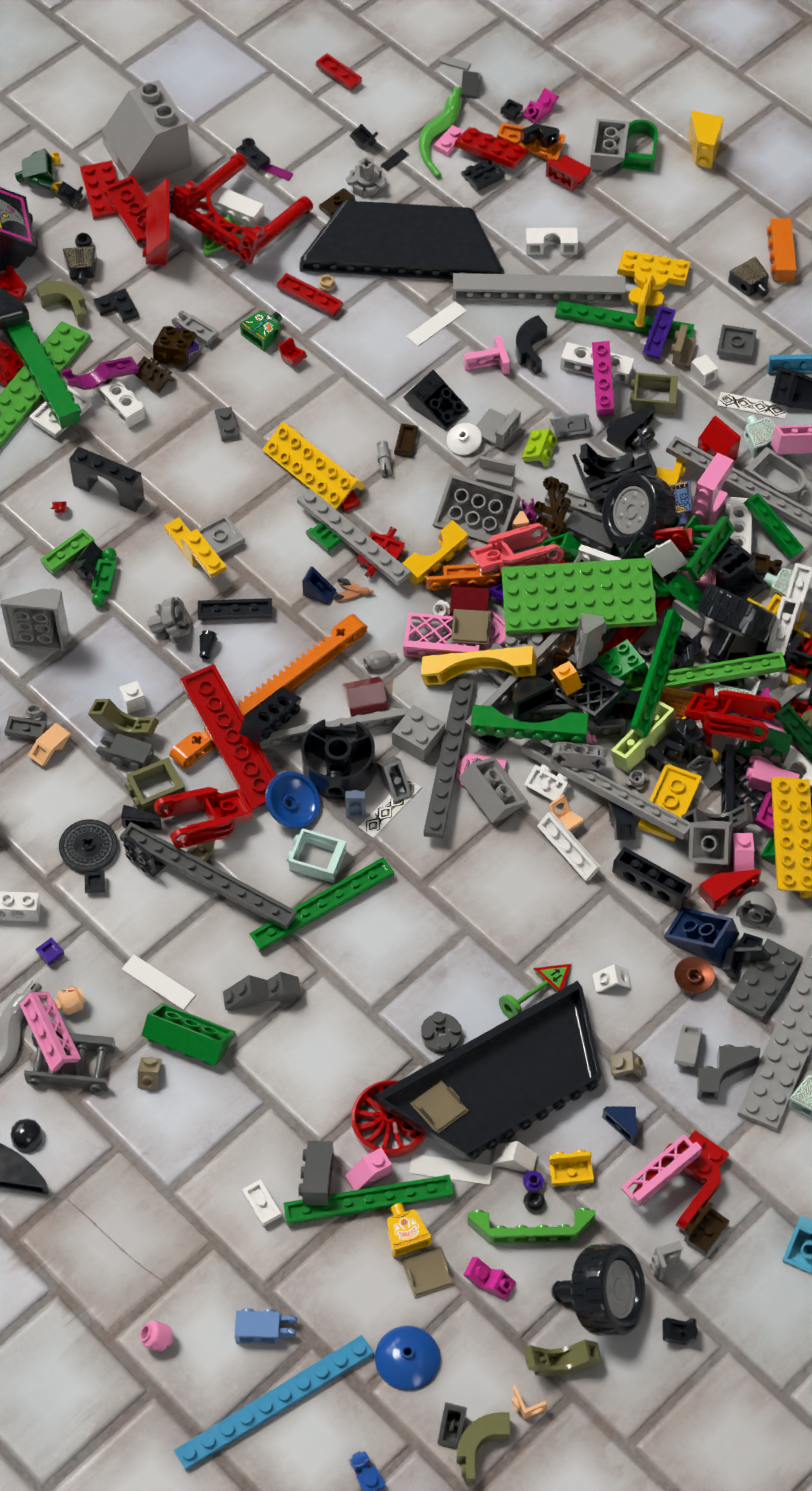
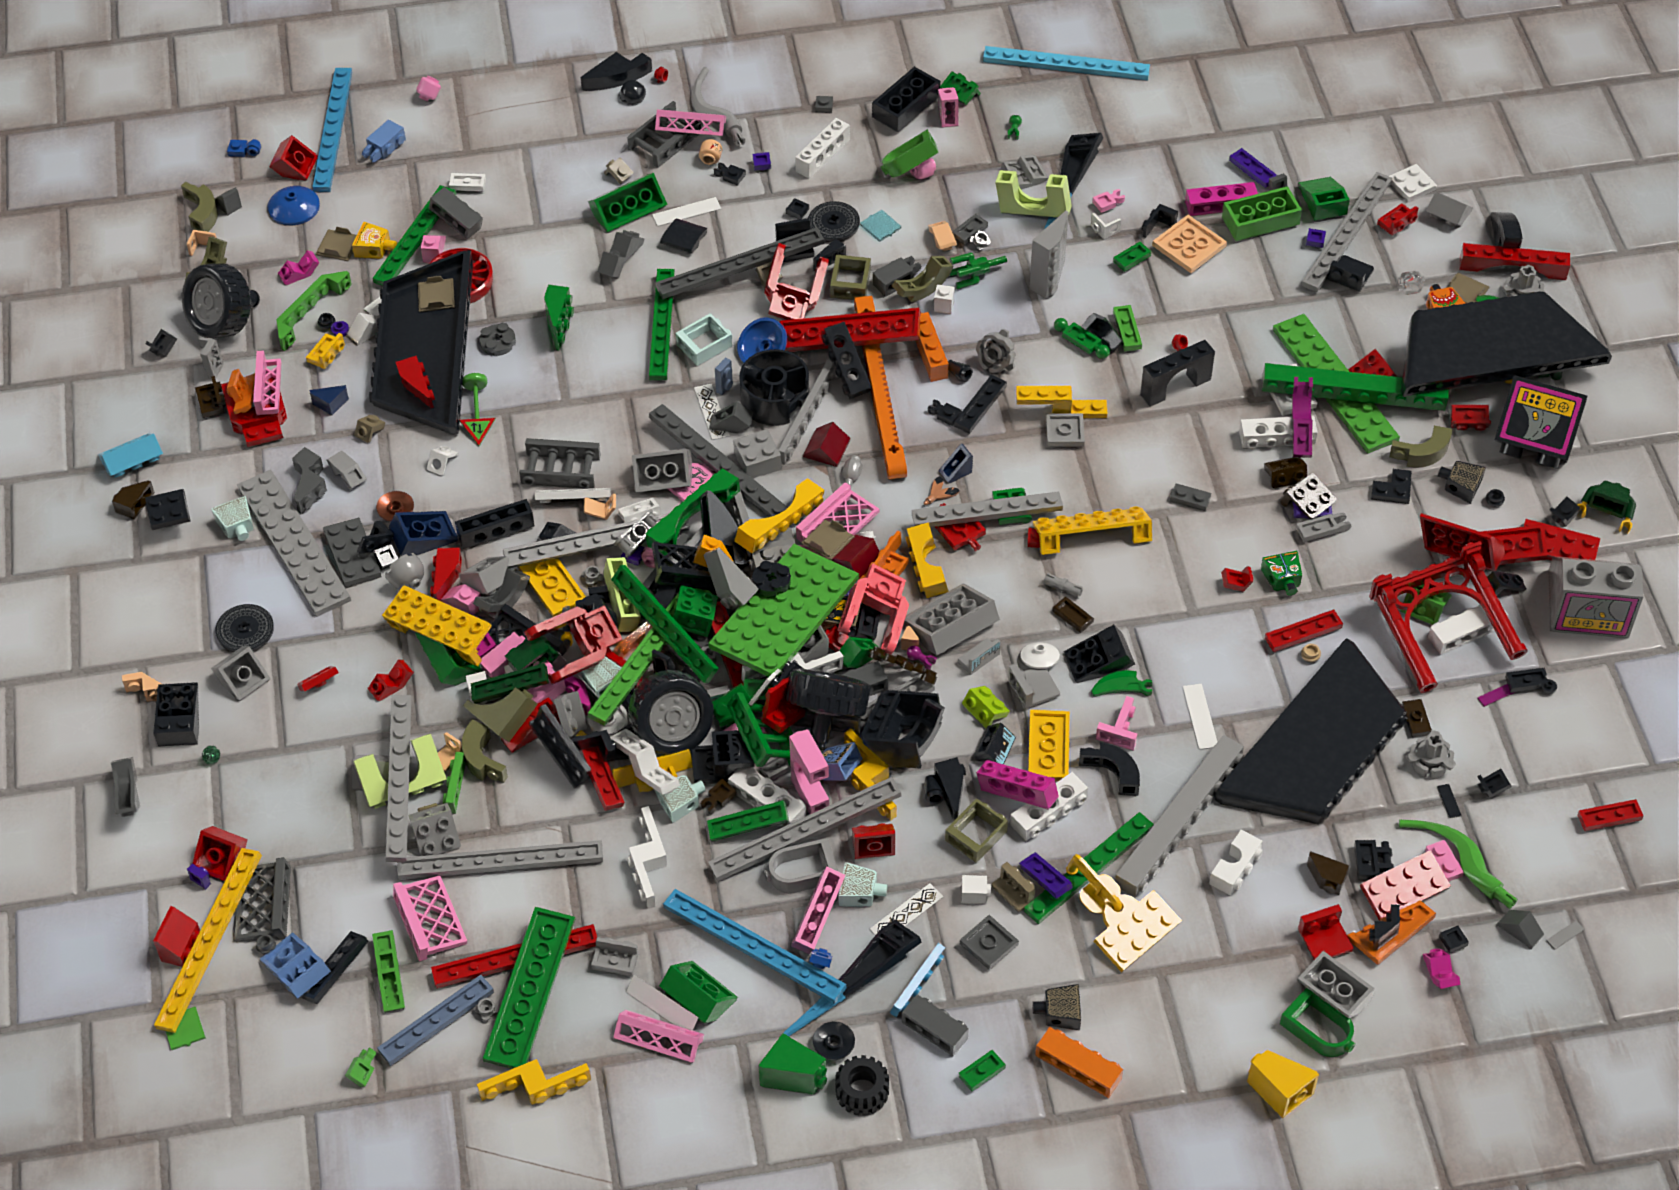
camera: 125 degrees right, 5 degrees down
(65, 806) = (880, 225): none -> clear light blue piece
(77, 694) = (973, 268): none -> green plant
(82, 970) = (730, 174): none -> black plate
(196, 957) = (683, 235): none -> black slope
(215, 655) = (931, 350): none -> orange brick
(261, 631) = (946, 413): none -> black plate
(352, 1401) = (293, 159): none -> red slope
(381, 988) = (558, 312): none -> green slope
(449, 378) = (1121, 682): none -> green piece
(517, 189) = (1327, 872): none -> dark brown slope
(535, 893) = (560, 449): none -> dark grey fence
(543, 391) = (1049, 743): none -> yellow plate
(548, 1059) = (413, 380): none -> red slope
(558, 604) = (771, 570): none -> black plate
(679, 1192) = (241, 390): none -> orange bracket

